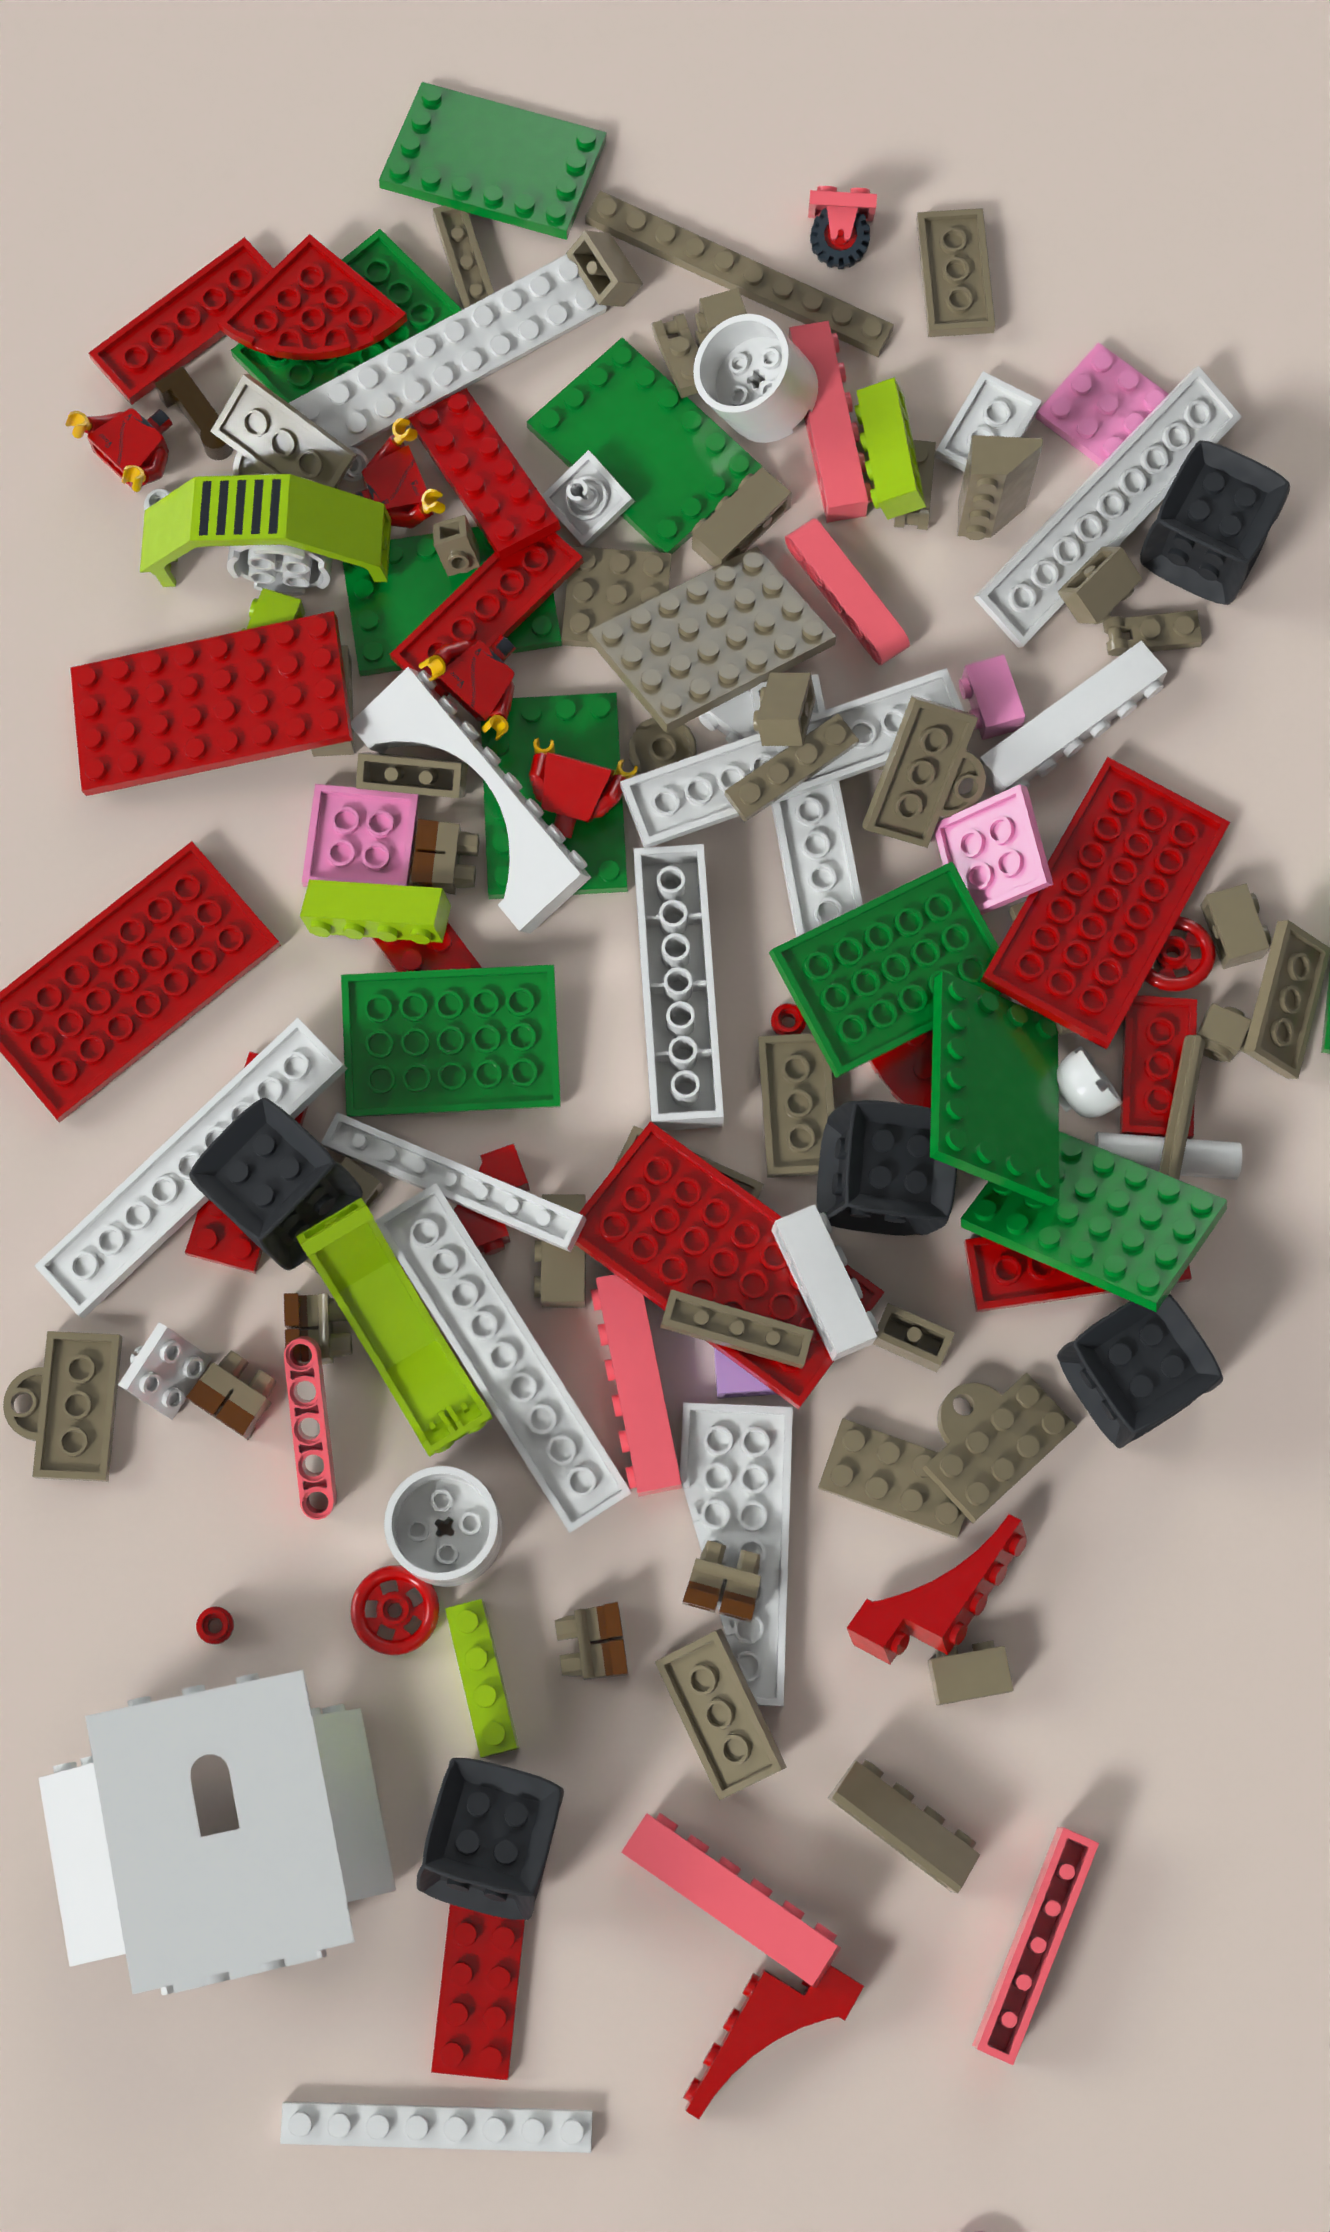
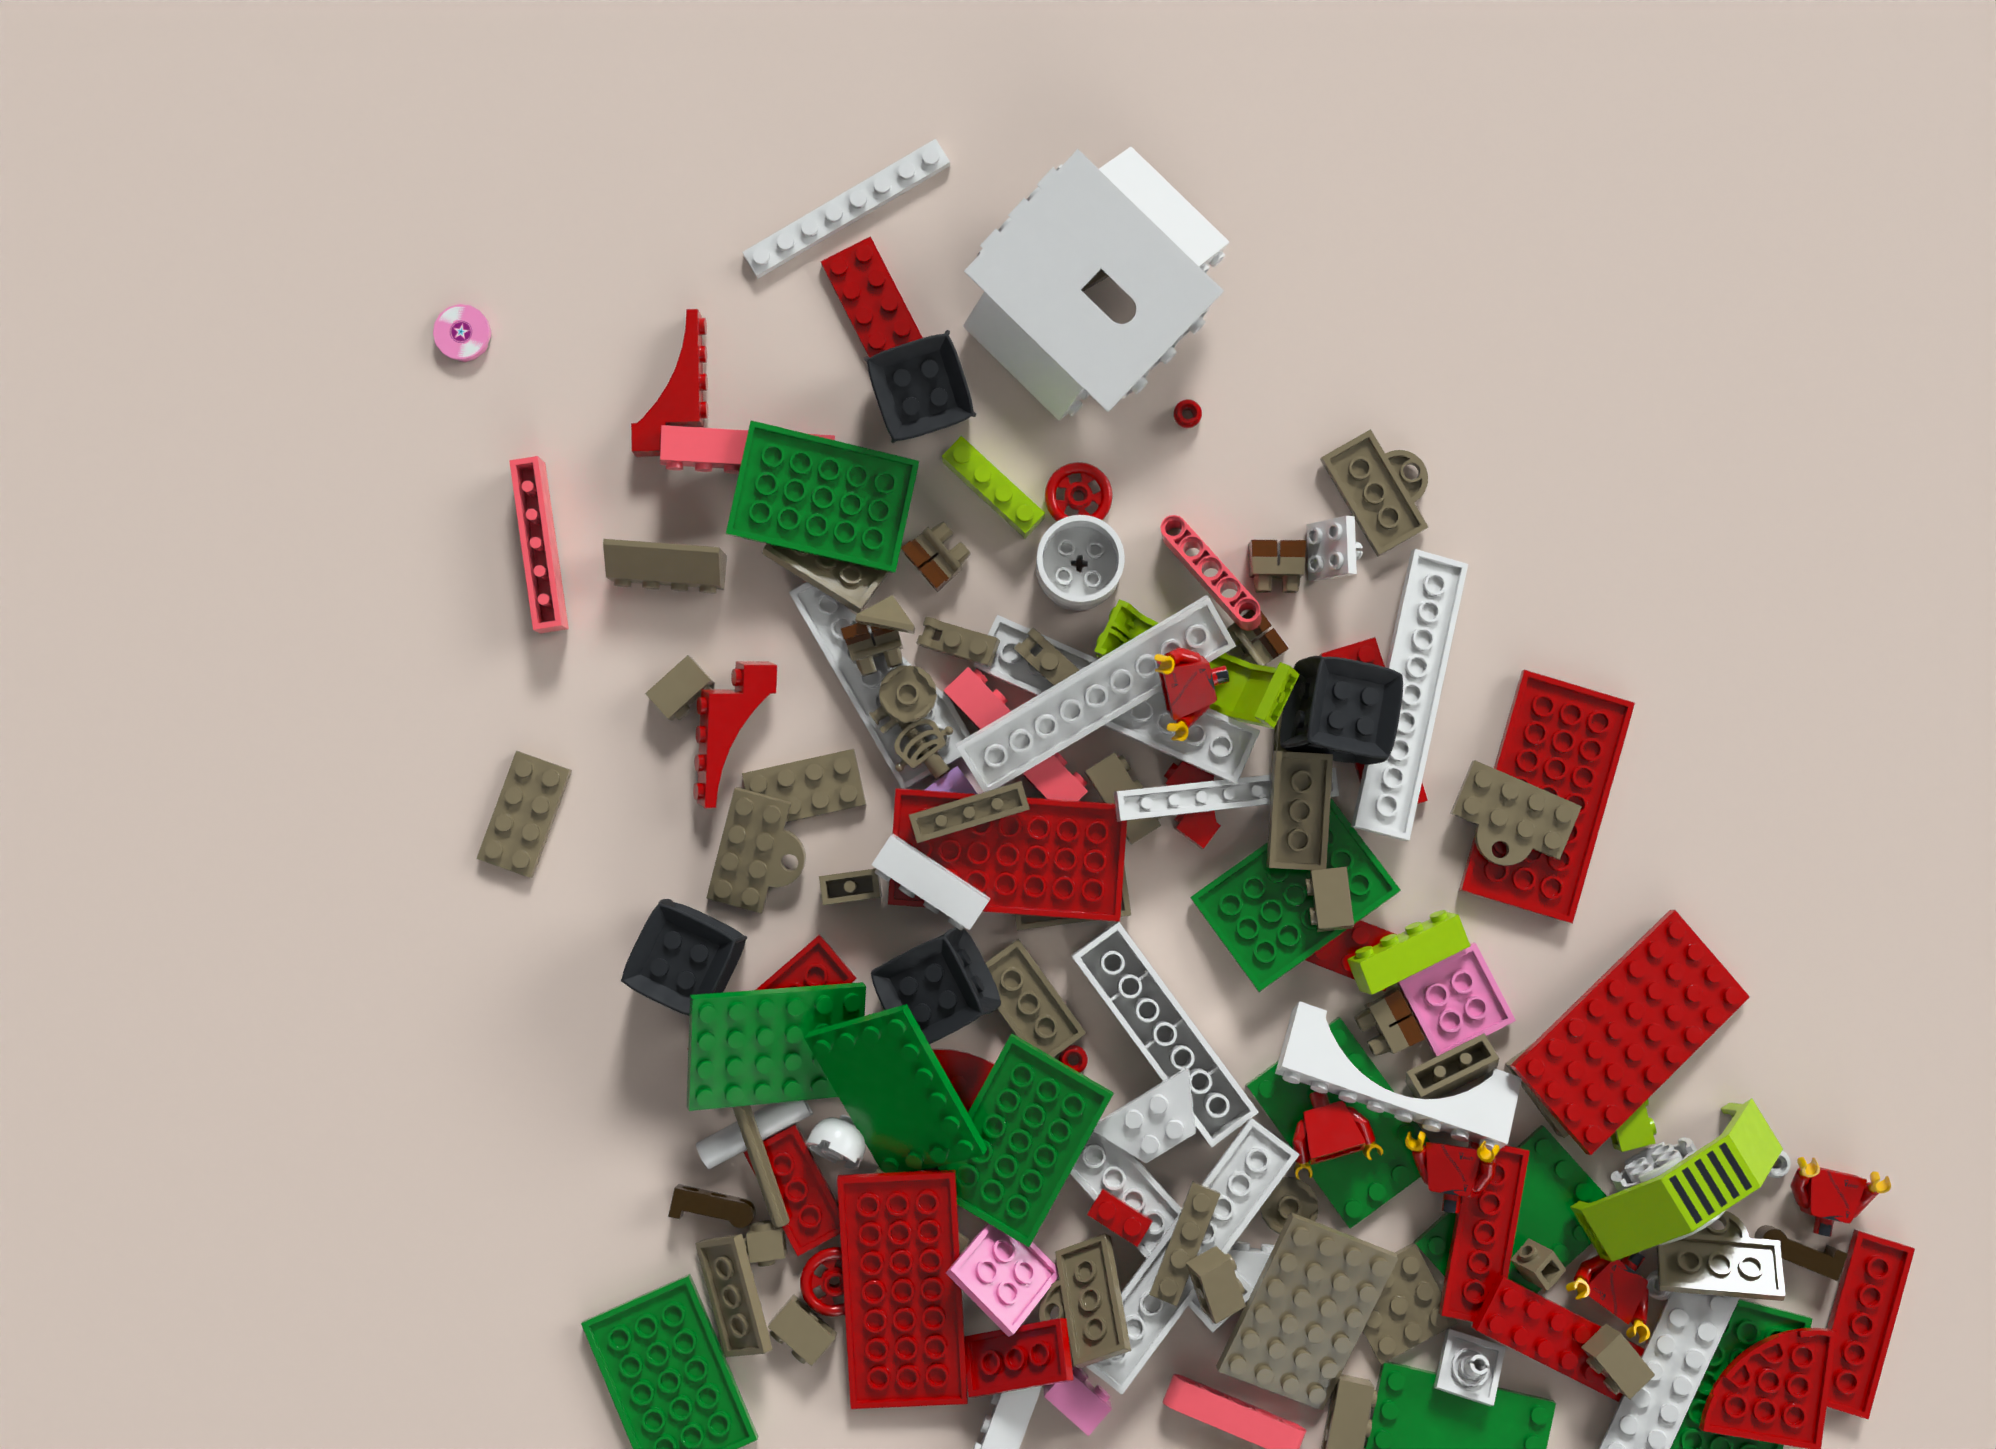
camera: 150 degrees right, 10 degrees up
(173, 980) = (1513, 814): none -> dark tan plate
(390, 1115) = (1299, 810): none -> dark tan plate
(419, 1007) = (1330, 898): none -> dark tan brick
(420, 1309) = (1187, 687): none -> red torso
(442, 417) = (1617, 1361): none -> dark tan brick
(521, 1368) = (1089, 697): none -> white plate
(545, 1433) = (1049, 661): none -> dark tan plate
(630, 1528) = (959, 642): none -> dark tan plate
(680, 1786) = (822, 497): none -> green plate
(691, 1599) = (886, 615): none -> dark tan slope
(722, 1502) = (907, 694): none -> dark tan tile
(741, 1420) = (930, 756): none -> dark tan torso
(744, 905) = (1153, 1120): none -> white wing
(840, 835) = (1120, 1217): none -> red plate
(1016, 753) = (1028, 1359): none -> red plate
(1227, 1646) = (524, 814): none -> dark tan plate
(1258, 1105) = (713, 1204): none -> dark brown leg

